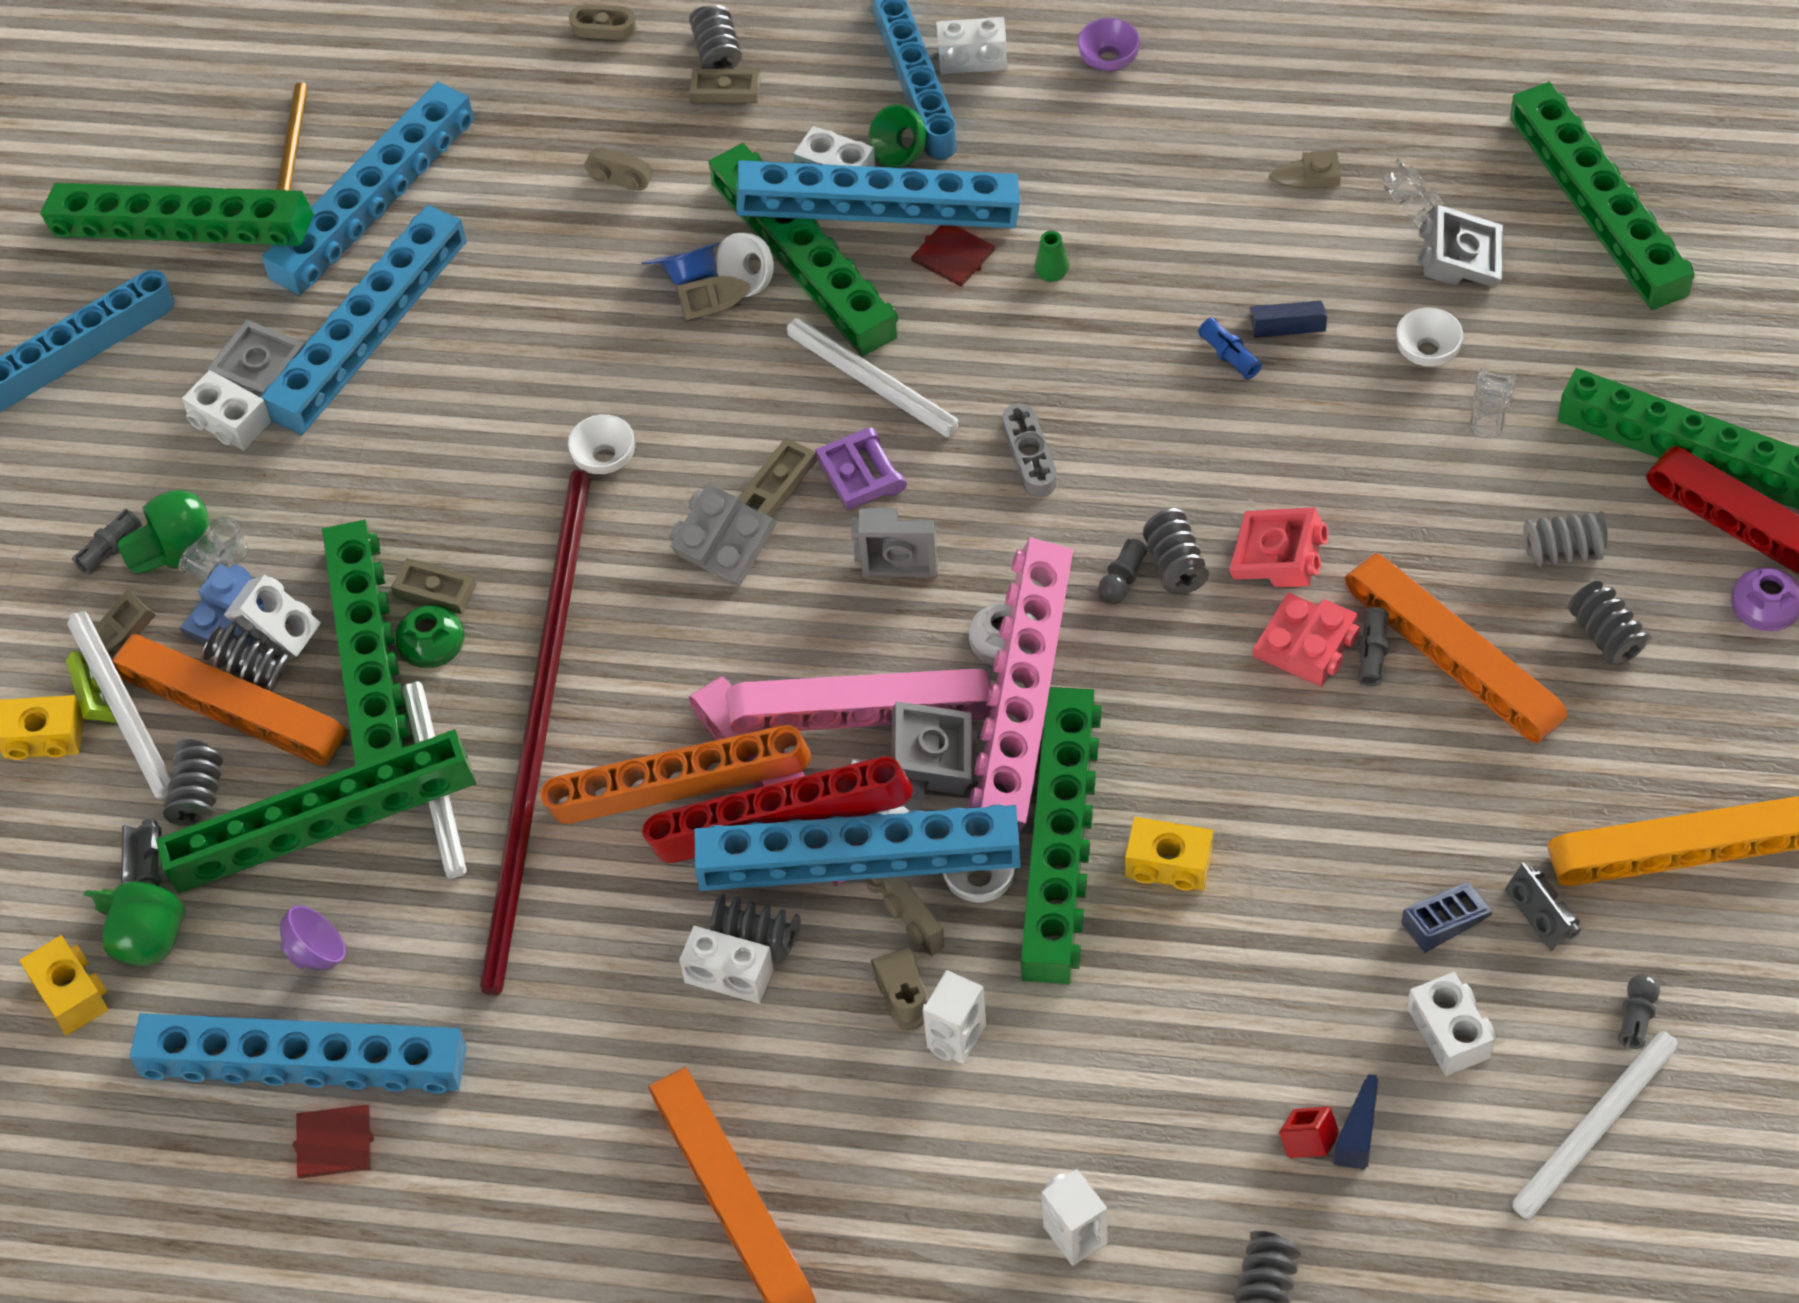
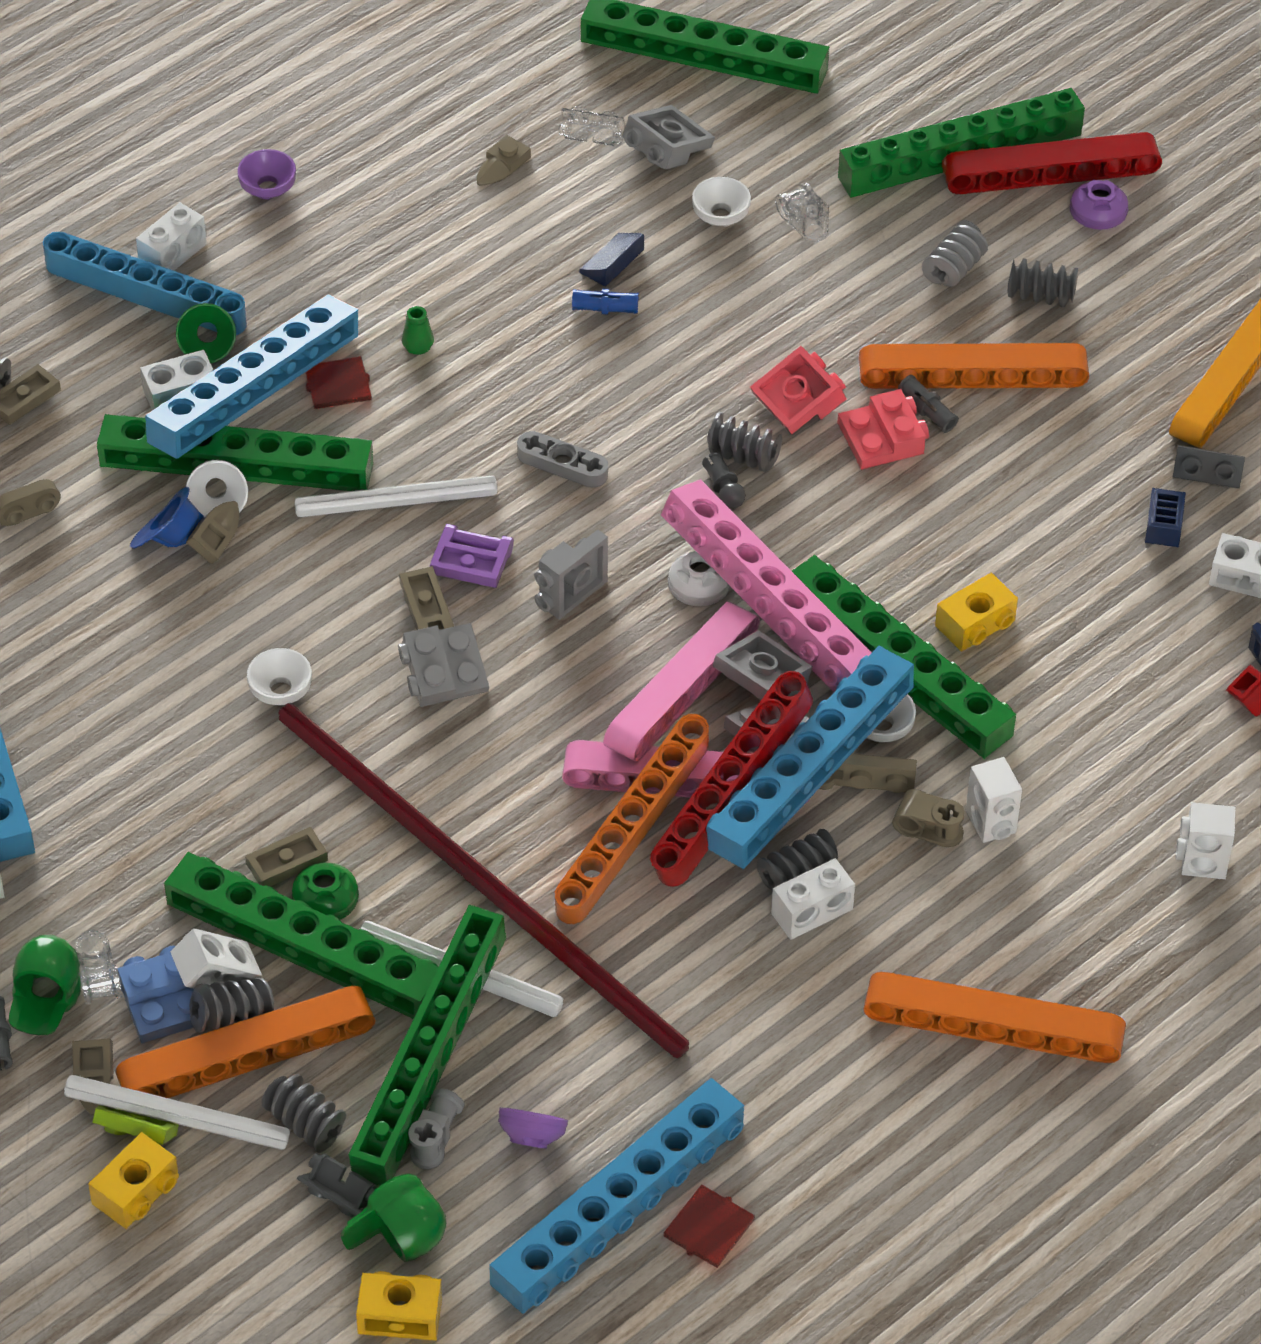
camera: 55 degrees left, 5 degrees down
(251, 879) = (432, 1129): none -> light grey connector

